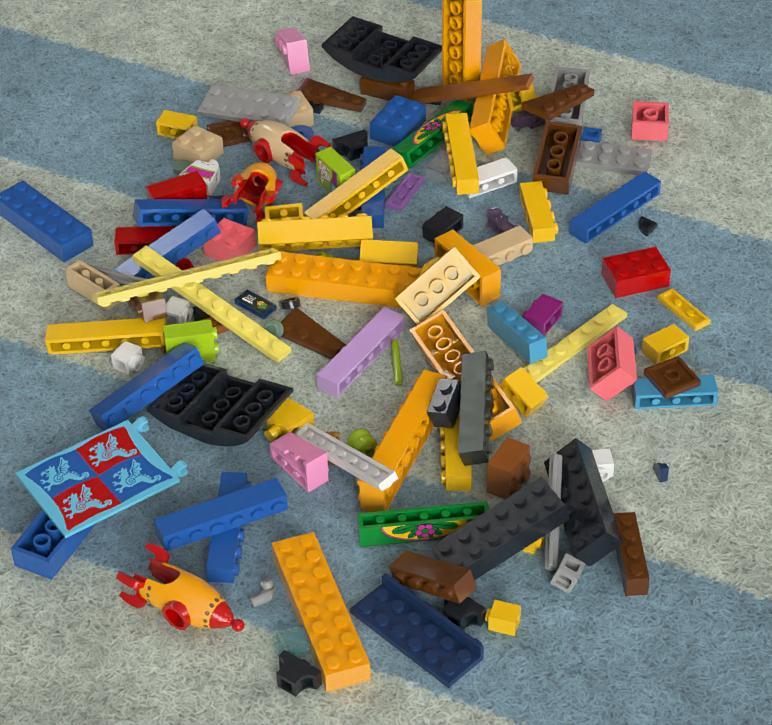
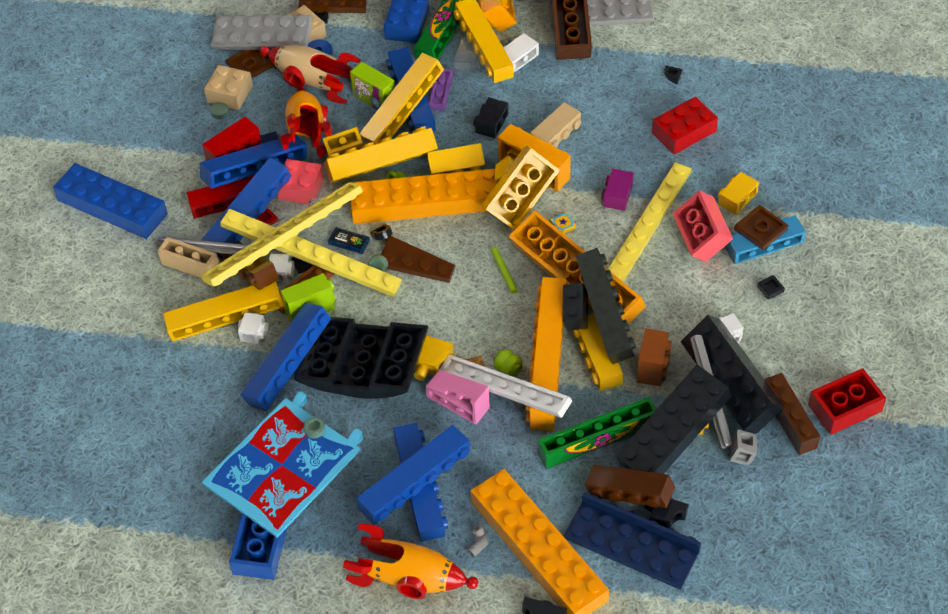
camera: 15 degrees left, 10 degrees up
(142, 450) = (314, 427): none -> sand green tile
(174, 124) = (197, 66): yellow brick -> none
(209, 172) = (241, 109): white torso -> none
(293, 641) = (527, 584): clear light blue brick -> none
(351, 144) = (373, 51): black brick -> none
(360, 352) = (467, 268): lavender brick -> none
(474, 334) = (563, 222): none -> yellow tile
(498, 221) = (542, 102): clear purple connector -> none
(503, 617) = (704, 507): yellow brick -> none
(517, 332) = (604, 214): dark azure brick -> none
(524, 392) = (635, 273): yellow brick -> none
(537, 211) = (572, 82): yellow brick -> none
(614, 207) = (639, 62): blue brick -> none
(661, 471) = (783, 322): dark blue tile -> none
(662, 436) = (770, 287): none -> black tile
(683, 309) = (739, 152): yellow tile -> none
(694, 555) = (846, 401): none -> red brick

